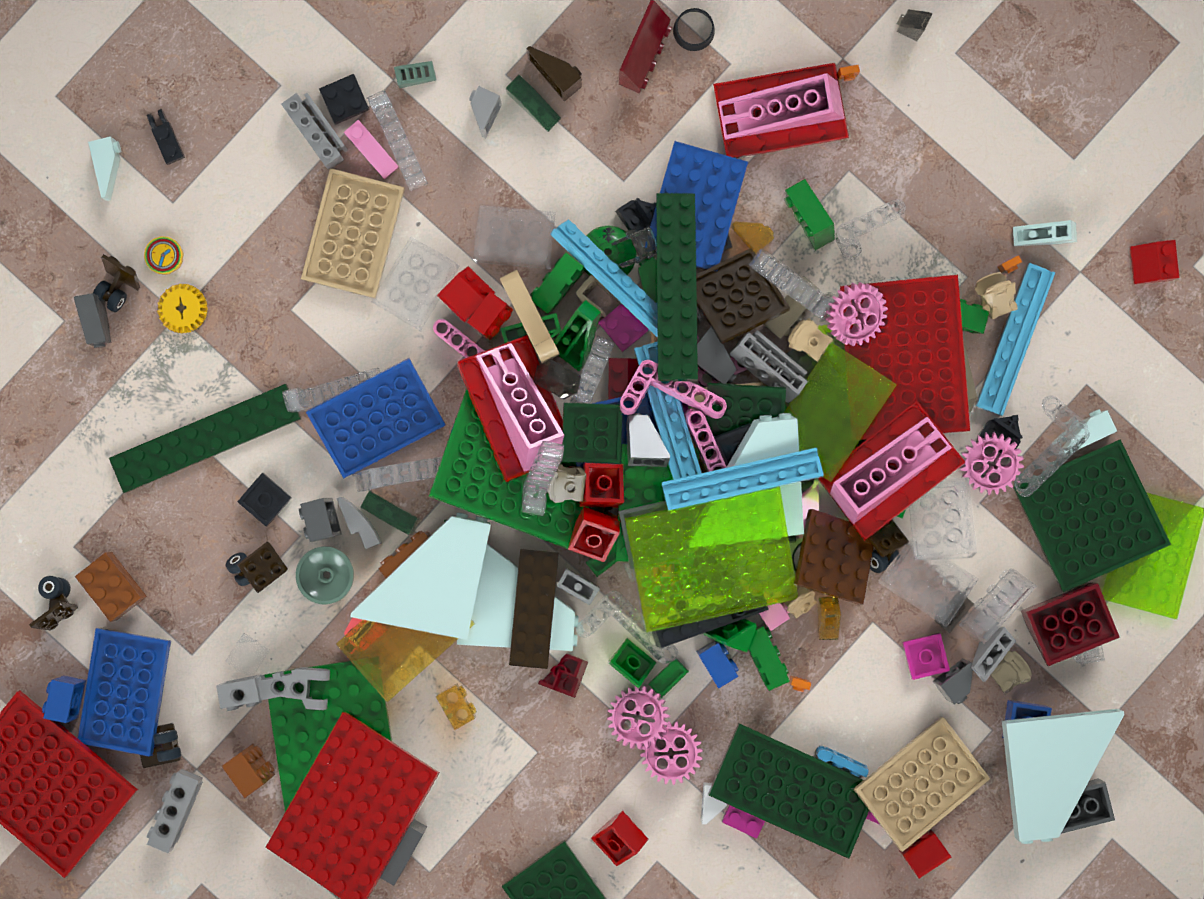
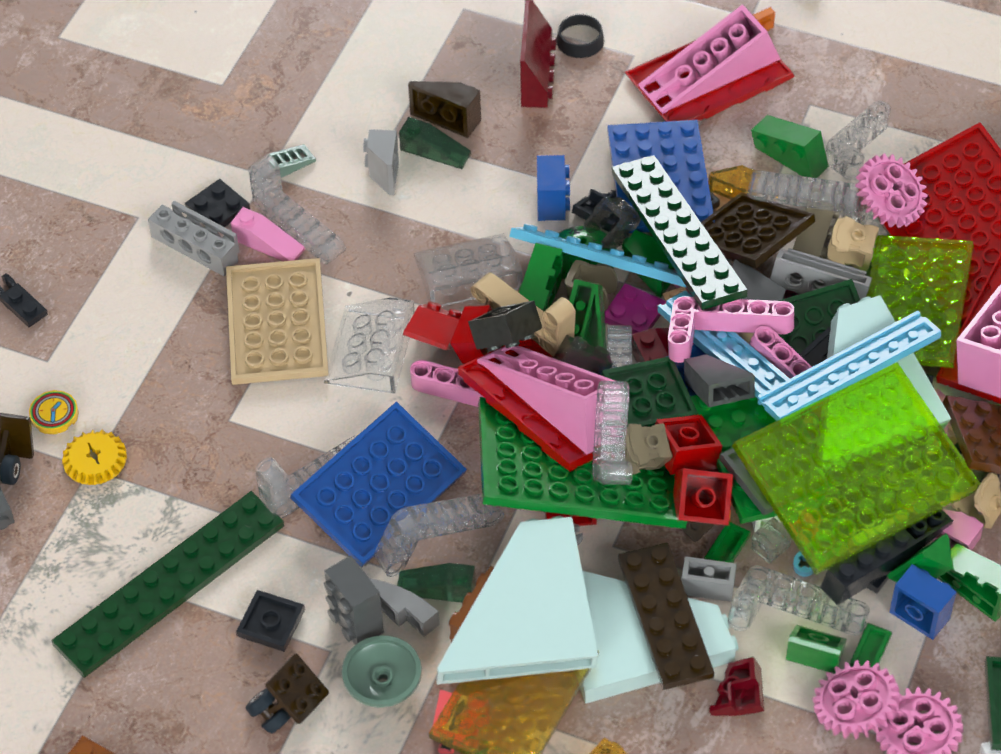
camera: 15 degrees left, 35 degrees down
(508, 333) = (505, 326): none -> pearl dark grey brick
(604, 190) = (552, 188): none -> blue brick

